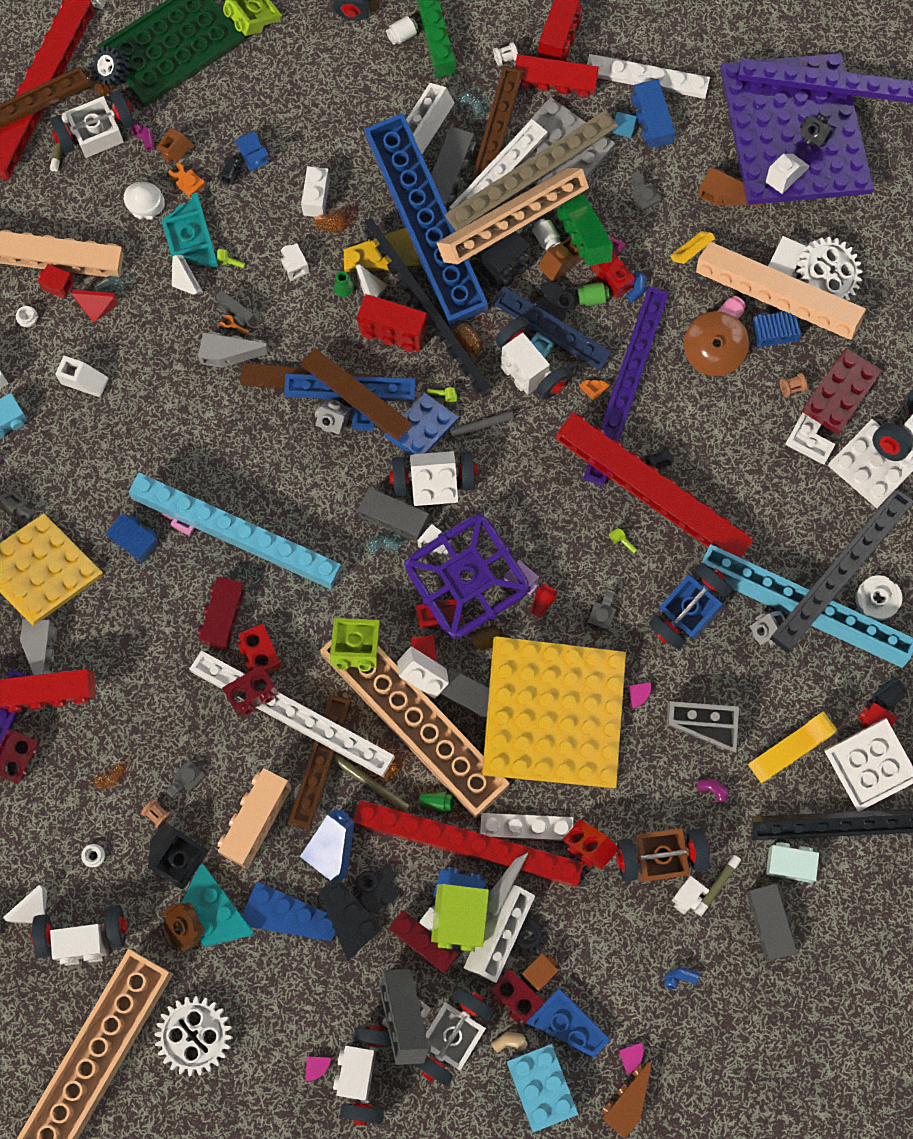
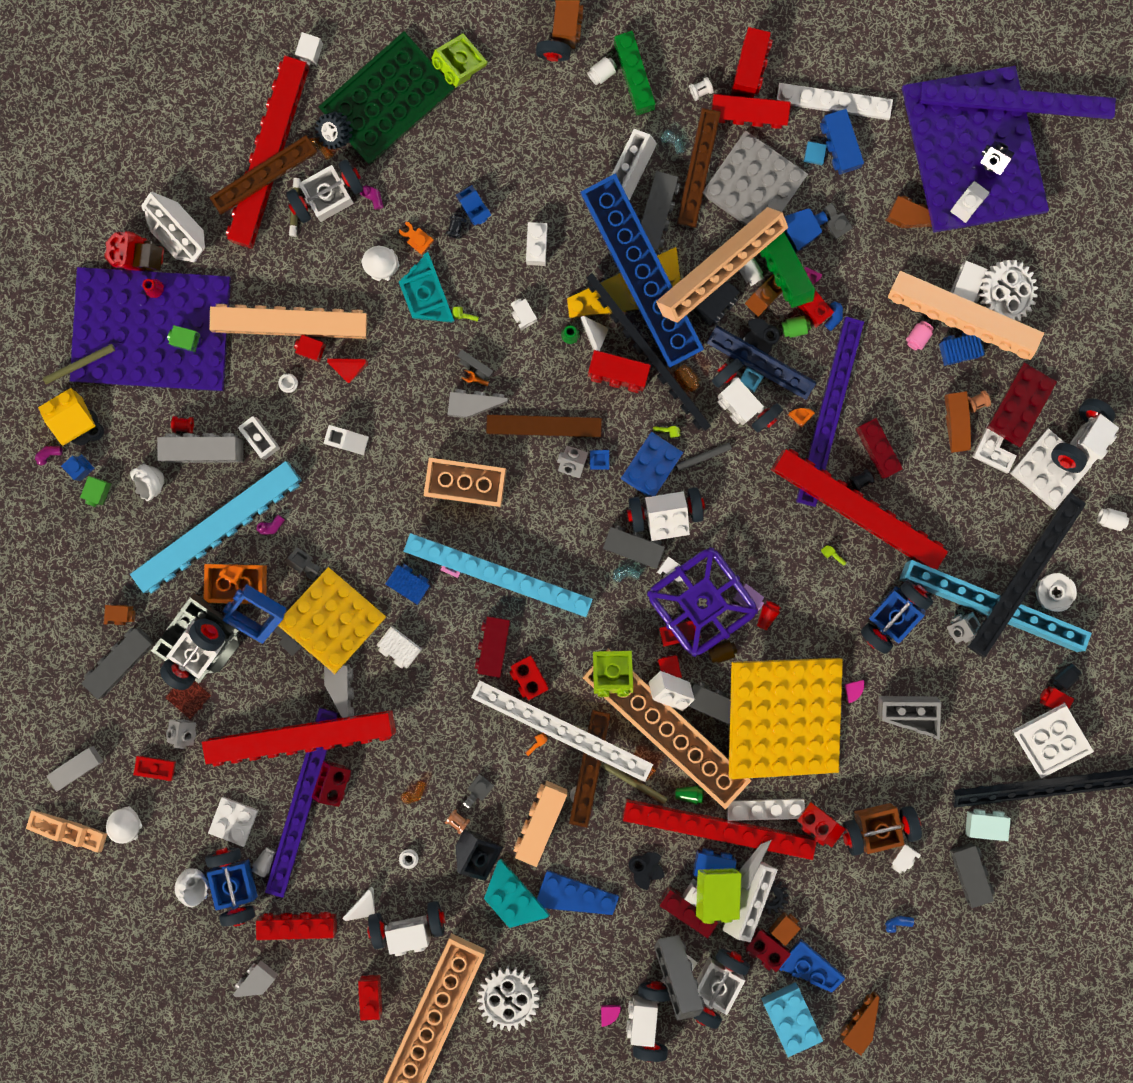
camera: 10 degrees left, 15 degrees up
(23, 1021) = (370, 997): none -> red brick
(110, 282) = (360, 345): clear light blue arm -> none
(112, 606) = (398, 647): none -> white brick
(173, 146) = (401, 207): dark orange brick -> none
(183, 277) = (425, 337): white slope -> none
(184, 915) = (498, 917): reddish brown plate -> none
(209, 430) = (465, 482): none -> light nougat brick
(247, 686) = (524, 713): dark red brick -> none
(267, 726) = (541, 740): none -> orange hand
(331, 222) = (552, 272): clear orange cone -> none
(331, 845) = (606, 841): slope -> none
(349, 918) = (625, 896): black wing -> none
(356, 394) = (593, 443): reddish brown tile -> none
(385, 388) = (585, 434): blue plate -> none
(507, 160) = (703, 213): white plate -> none
(510, 1039) = (764, 982): tan arm -> none
(531, 171) = (735, 214): dark tan plate -> none
(602, 613) = (819, 622): dark grey plate -> none
(607, 194) = (803, 228): none -> blue torso
(631, 1057) = (862, 988): dark pink tile -> none
(679, 425) = (879, 448): none -> dark red brick
(692, 247) = (883, 274): yellow tile -> none
(711, 359) = (906, 356): dark orange dish -> none
(715, 786) = (920, 764): magenta arm -> none
(717, 885) = (927, 844): olive bar -> none
(770, 403) = (958, 421): none -> dark orange slope
(792, 747) = (986, 728): yellow beam -> none

